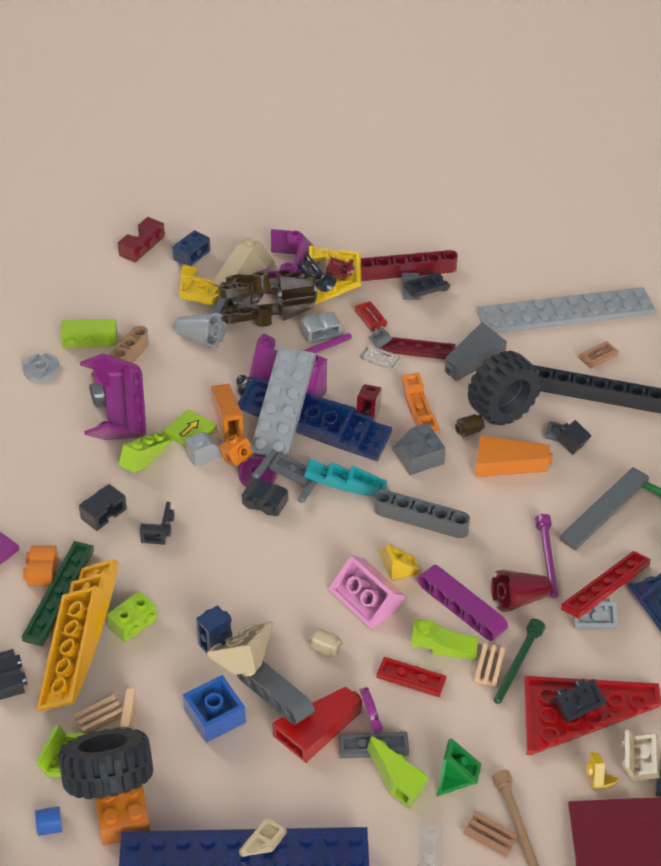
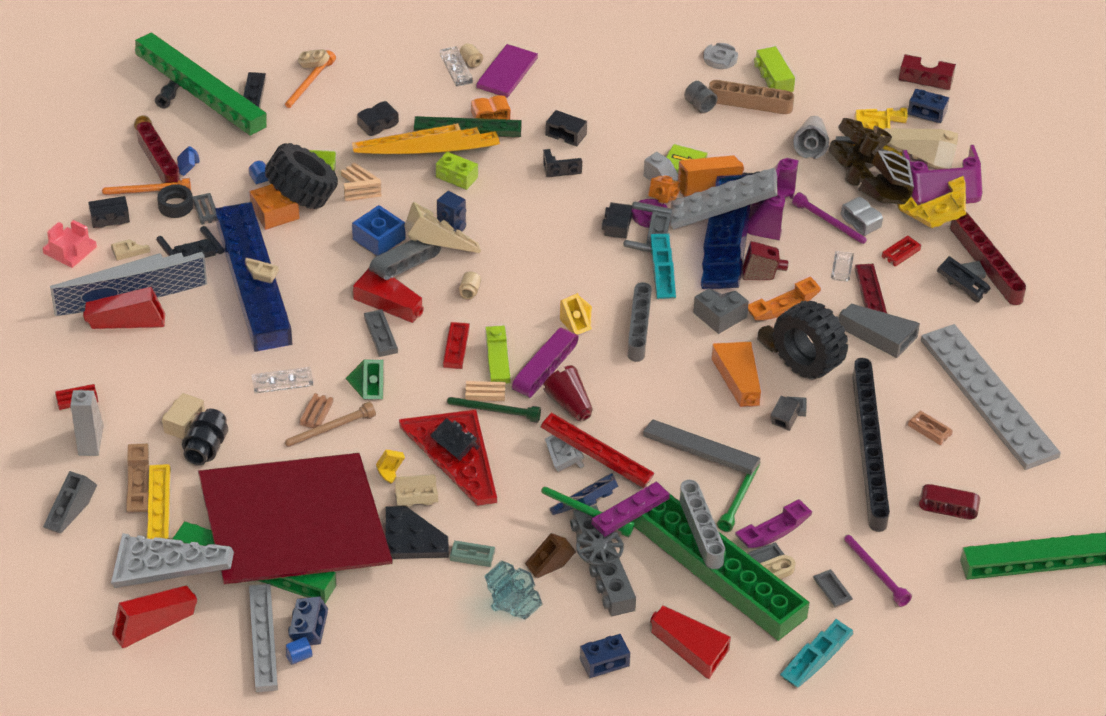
camera: 75 degrees right, 0 degrees up
(123, 398) = (688, 108): magenta windscreen -> none
(141, 452) = (640, 136): lime slope -> none
(325, 282) = (915, 196): black piece -> none
(340, 268) = (933, 199): dark red bracket -> none
(366, 591) = (535, 300): bright pink slope -> none
(371, 709) = (403, 315): magenta tile -> none
(380, 338) = (866, 259): dark grey tile -> none
(399, 776) = (347, 347): lime slope -> none
(543, 524) = (663, 406): magenta piece -> none

